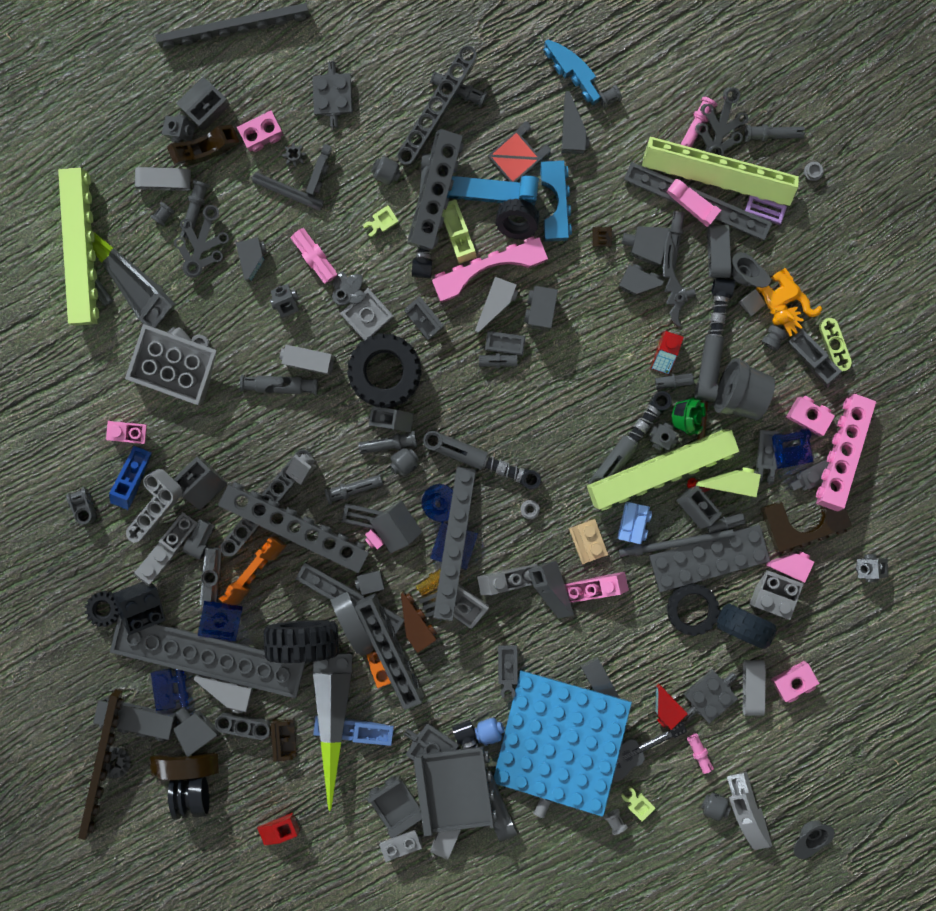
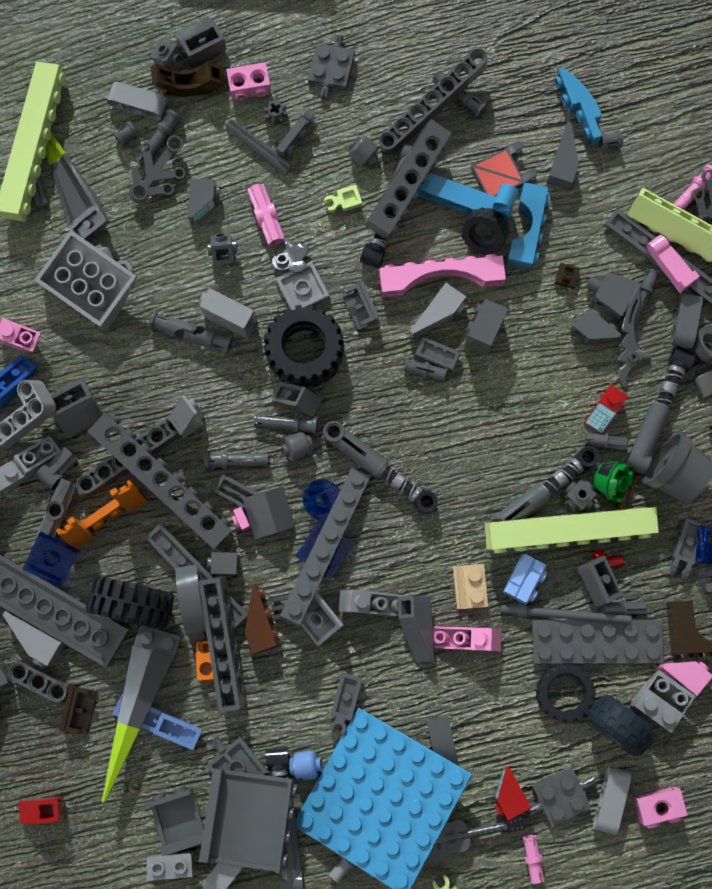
camera: 20 degrees right, 10 degrees down
(429, 583) = (285, 583): clear yellow pin -> none
(458, 233) = (419, 230): yellowish green slope -> none
(530, 503) = (416, 527): light grey plate -> none
(736, 481) = (650, 567): yellowish green slope -> none

